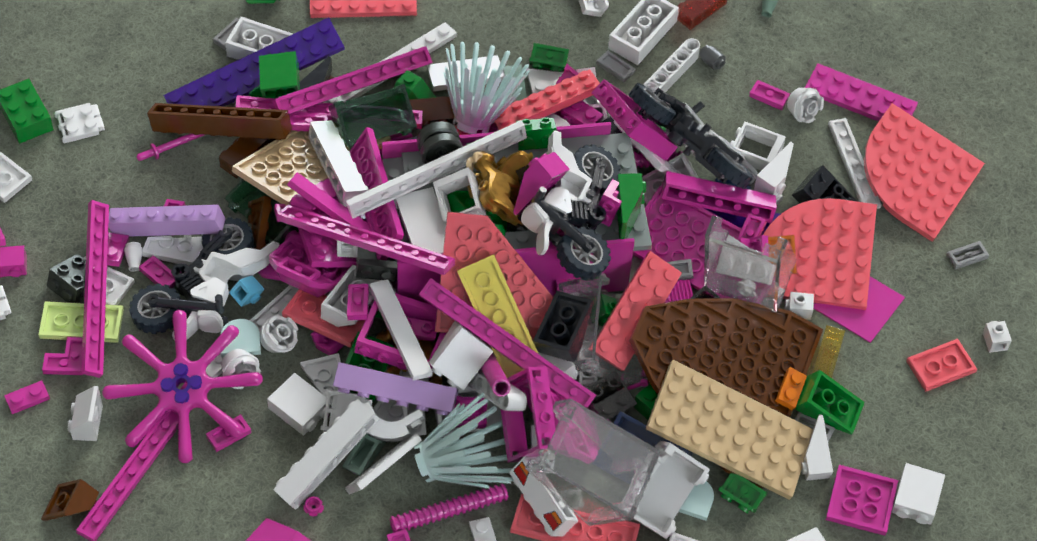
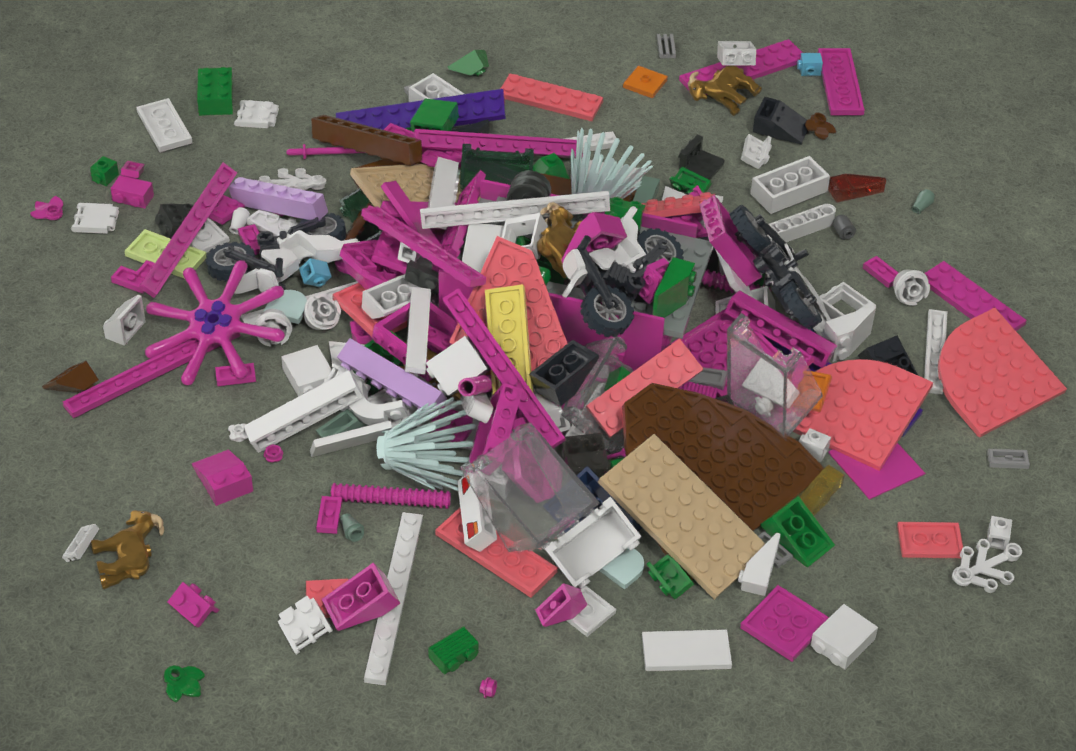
camera: 25 degrees right, 10 degrees down
(27, 397) = (87, 294): dark pink plate -> none
(184, 184) = (315, 182): none -> white plant
(266, 501) = (238, 432): none -> white plate
(357, 301) = (393, 297): dark pink plate -> none
(545, 29) = (699, 161): none -> pearl dark grey bracket
(615, 66) = (750, 204): light grey tile -> none
(791, 388) = (765, 506): orange plate -> none
(999, 375) = (985, 567): none -> white plant

